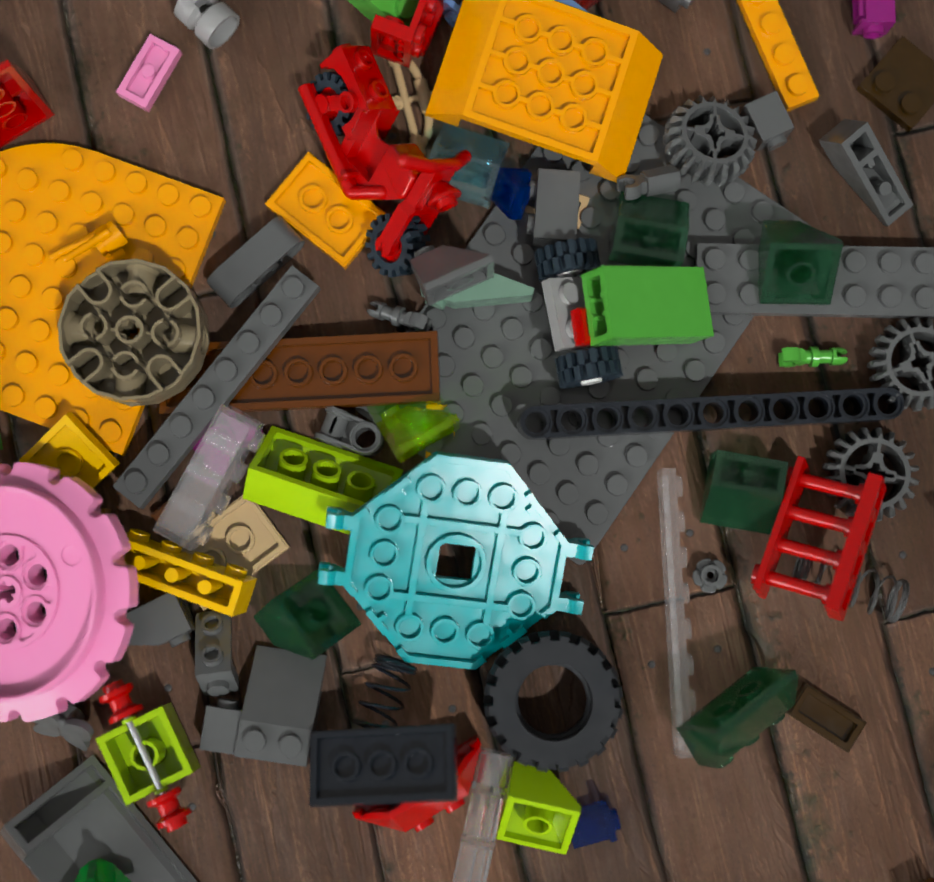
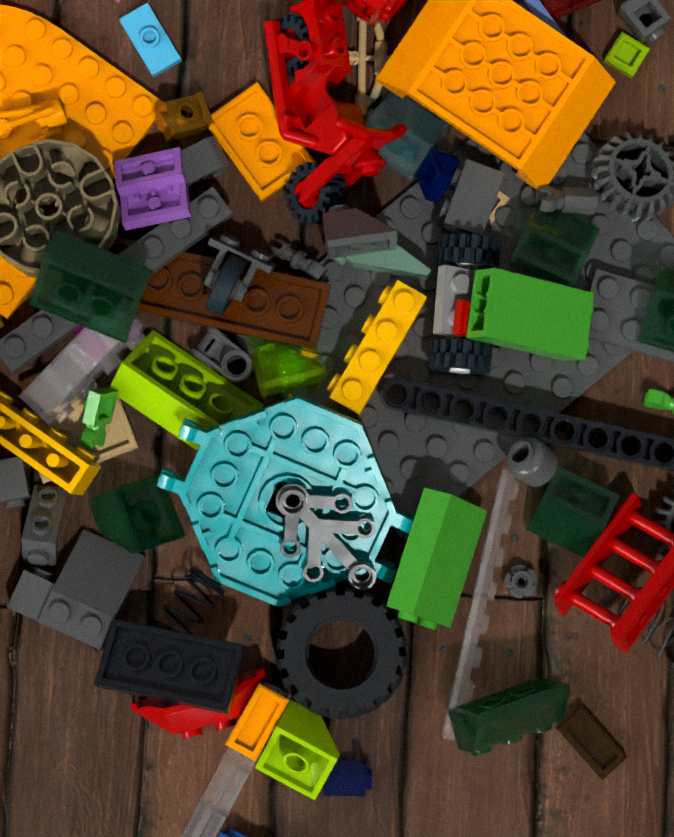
camera: 15 degrees right, 0 degrees up
(190, 139) = (150, 40): none -> medium azure plate
(193, 398) = (91, 286): none -> clear green slope
(231, 284) = (152, 188): none -> medium lavender slope
(238, 525) = (97, 413): none -> bright green plate
(244, 205) = (192, 121): none -> pearl gold brick
(332, 356) = (227, 283): none -> plate
(487, 796) = (257, 722): none -> light orange tile
(500, 582) = (322, 531): none -> plant
(502, 383) = (378, 348): none -> yellow brick
(621, 578) = (436, 559): none -> bright green brick
(664, 27) = (626, 55): none -> lime tile
(690, 453) = (532, 461): none -> dark grey head

